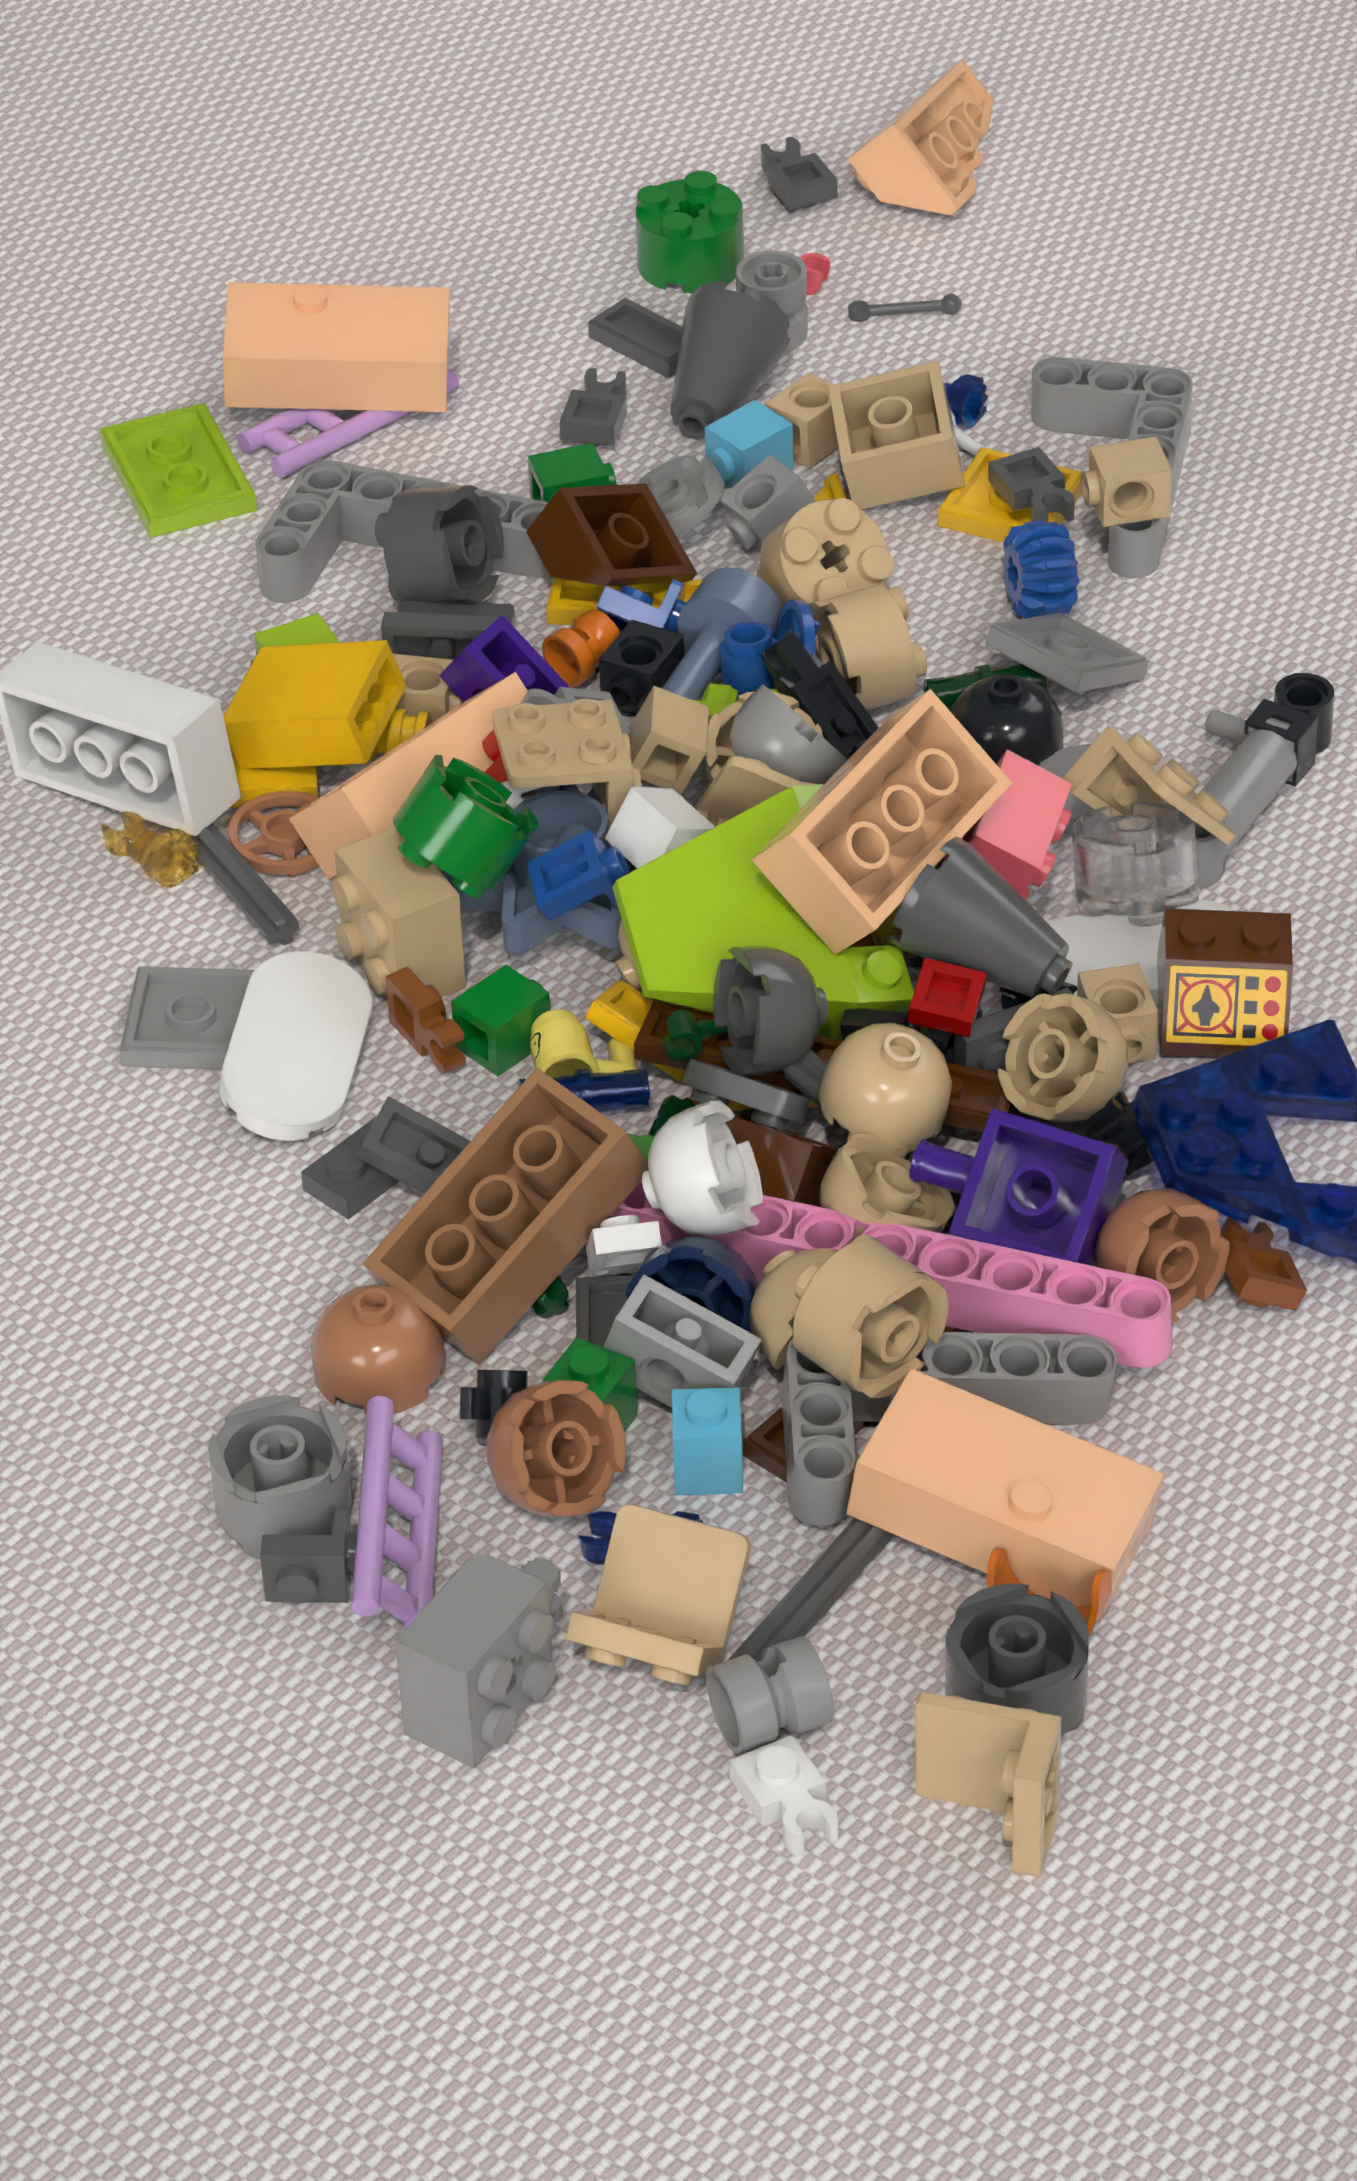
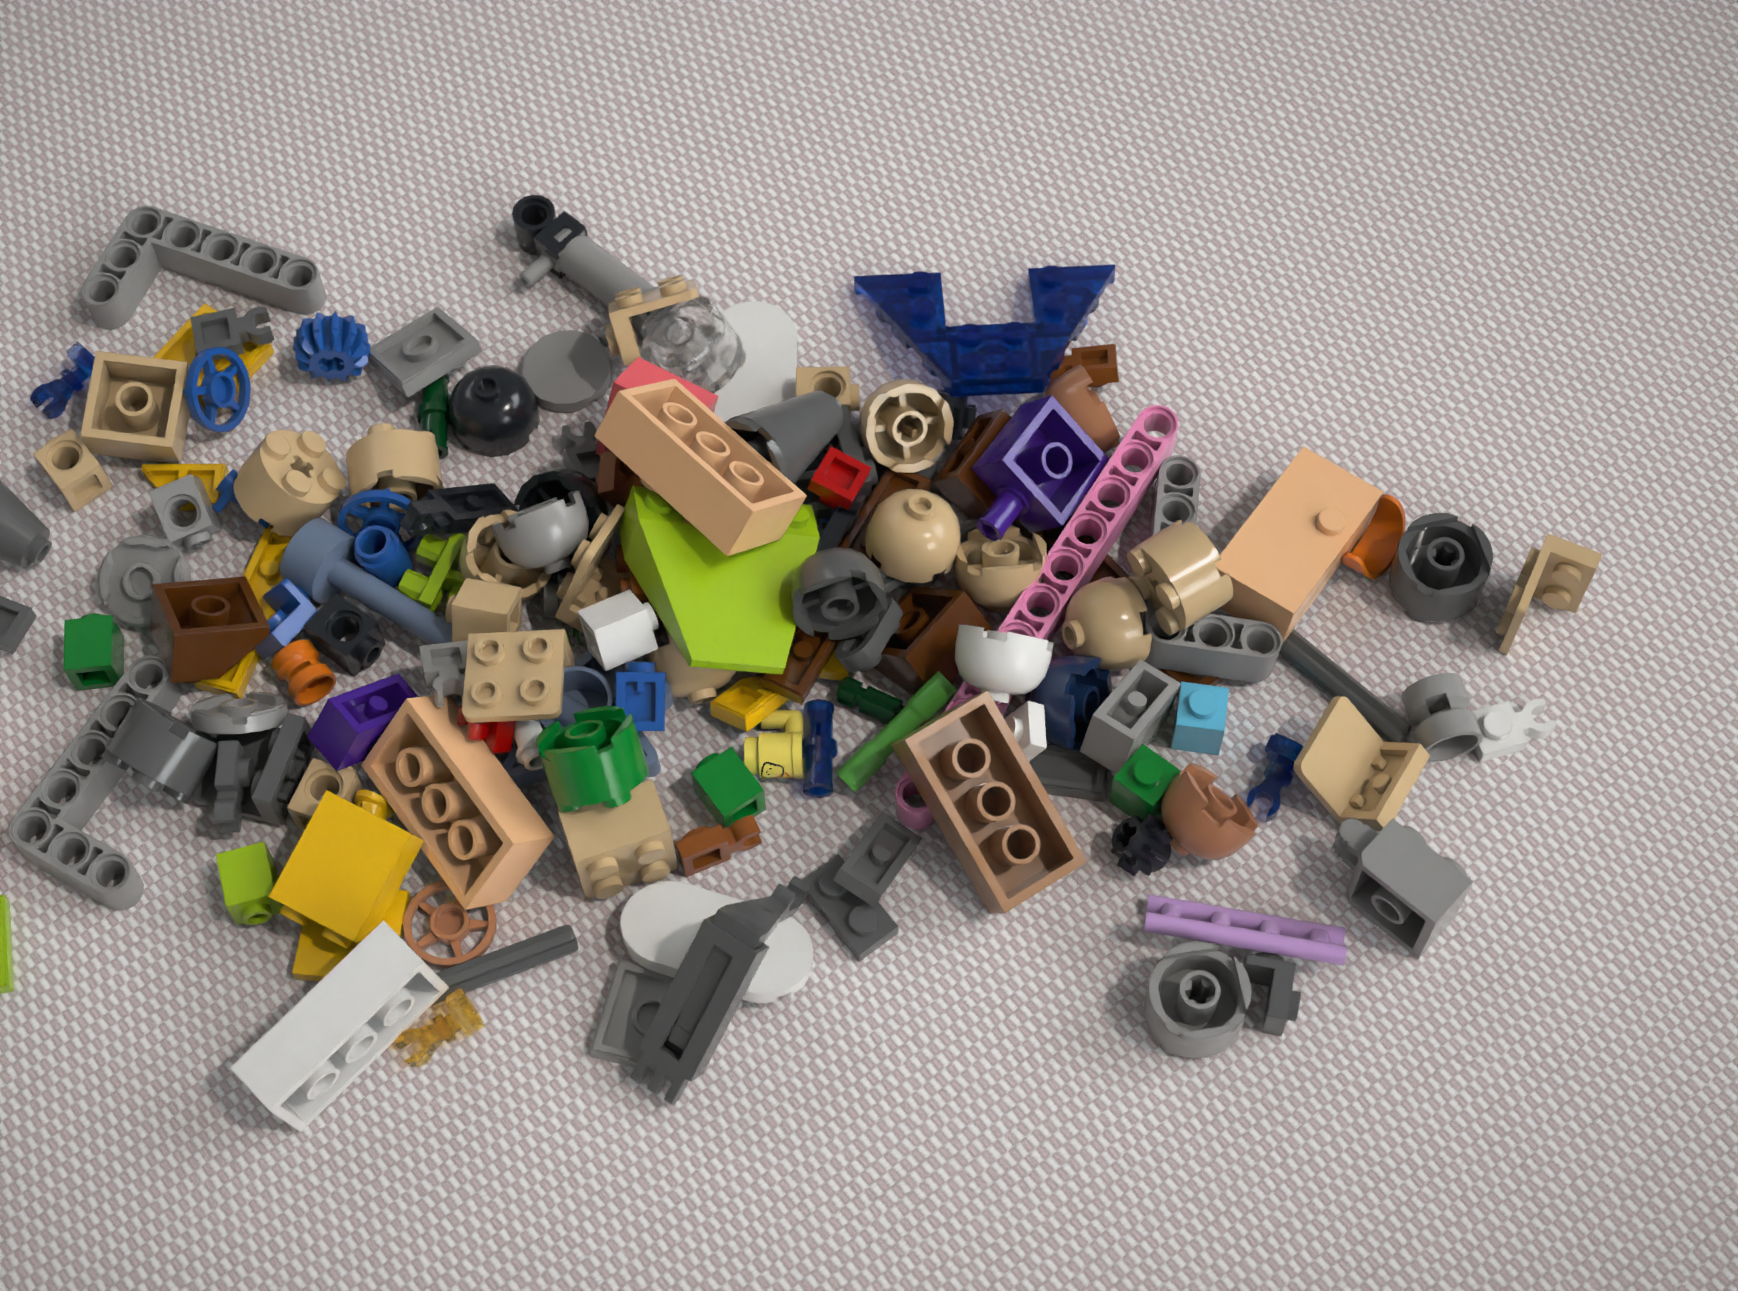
camera: 80 degrees left, 20 degrees up
(220, 990) = (711, 988): none -> dark grey hinge
(376, 1346) = (1061, 927): nougat cylinder -> none
(416, 595) = (232, 777): none -> dark grey plate
(503, 589) = (237, 716): none -> light grey tile
(687, 1034) = (817, 659): dark green hand -> none
(746, 438) = (92, 517): medium azure brick -> none
(944, 491) = (217, 389): none -> blue wheel
(1128, 482) = (278, 261): tan brick -> none
(1222, 980) = (819, 322): slope -> none

